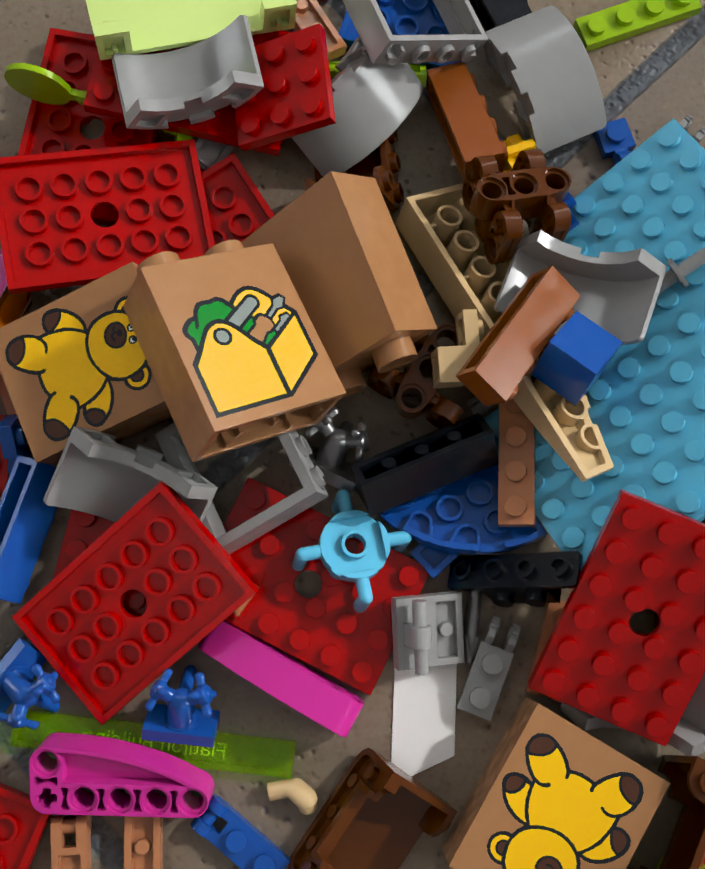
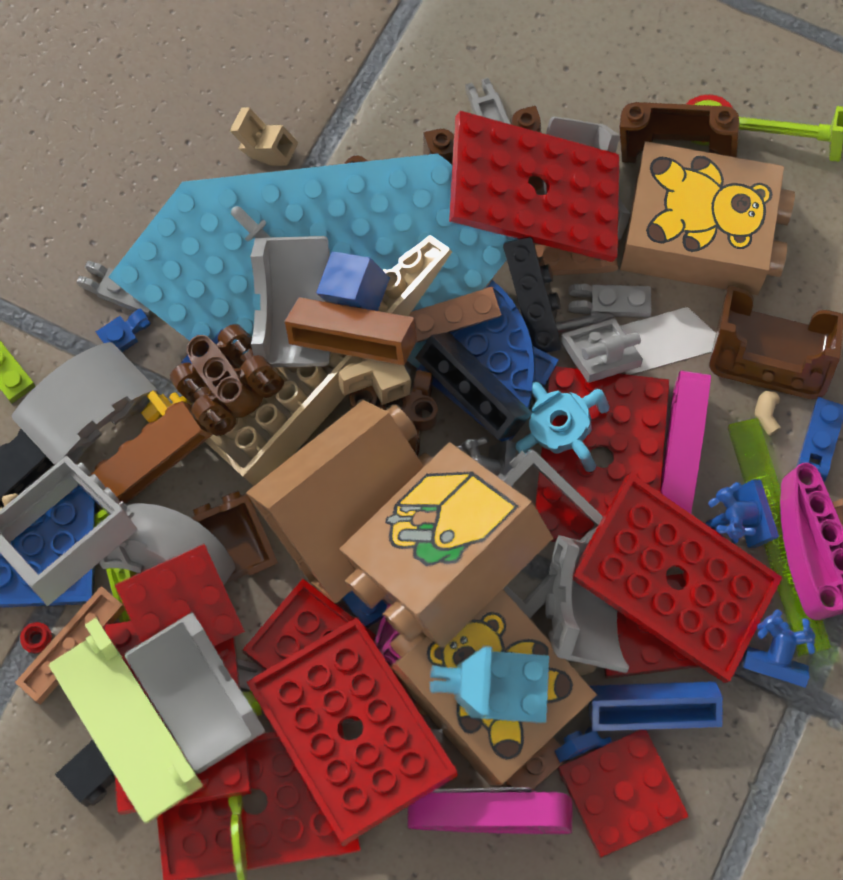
camera: 110 degrees left, 10 degrees down
(72, 353) = (497, 685): none -> medium azure plate

